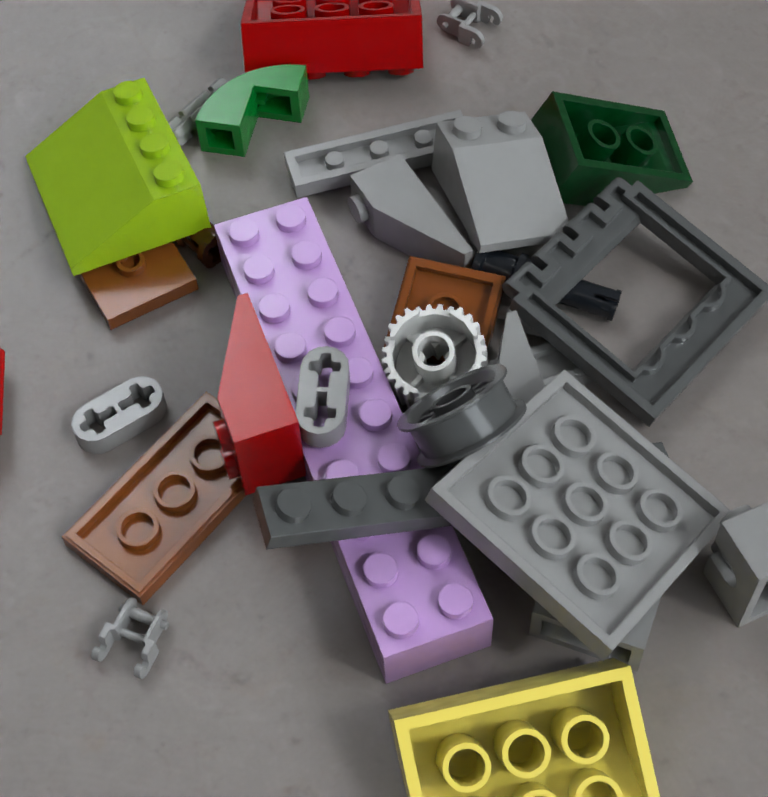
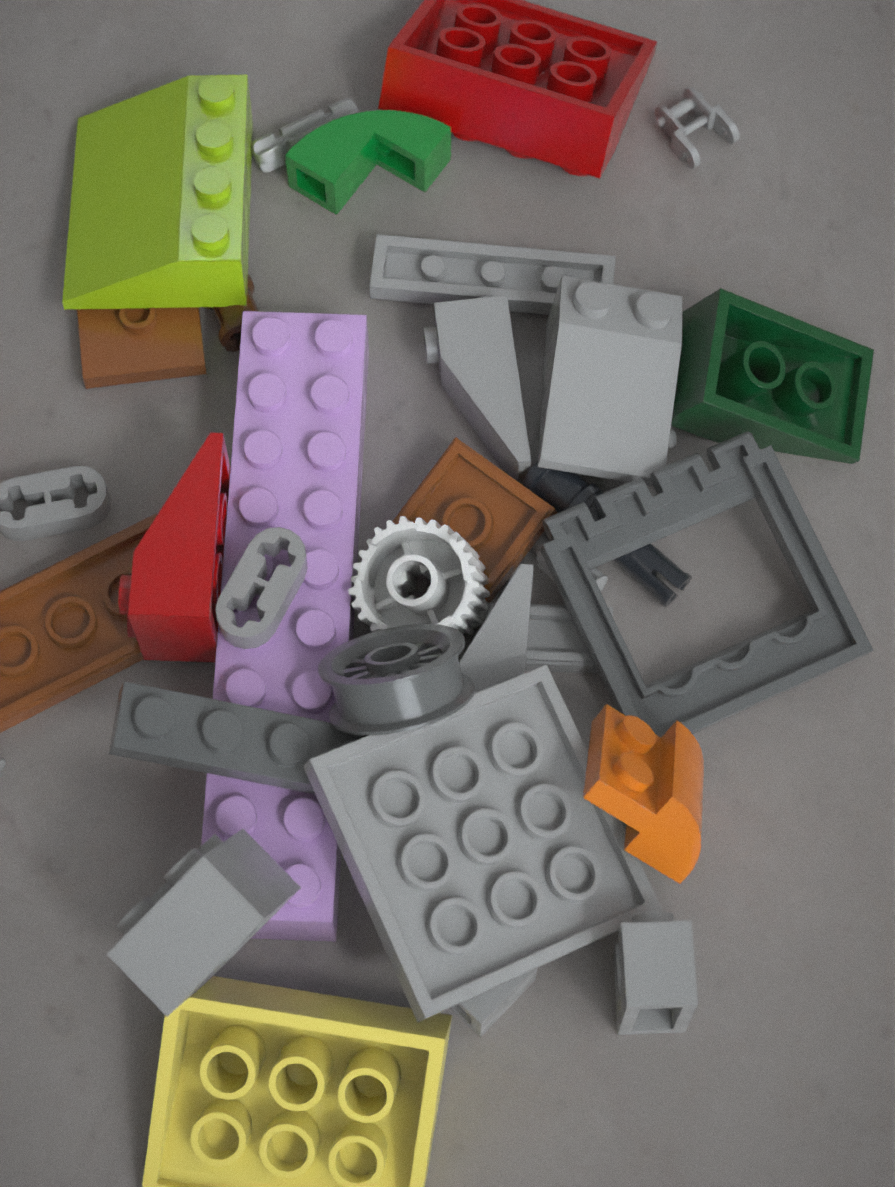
camera: 20 degrees right, 10 degrees up
(403, 648) = (200, 918): none -> light grey brick
(686, 430) = (650, 787): none -> orange brick

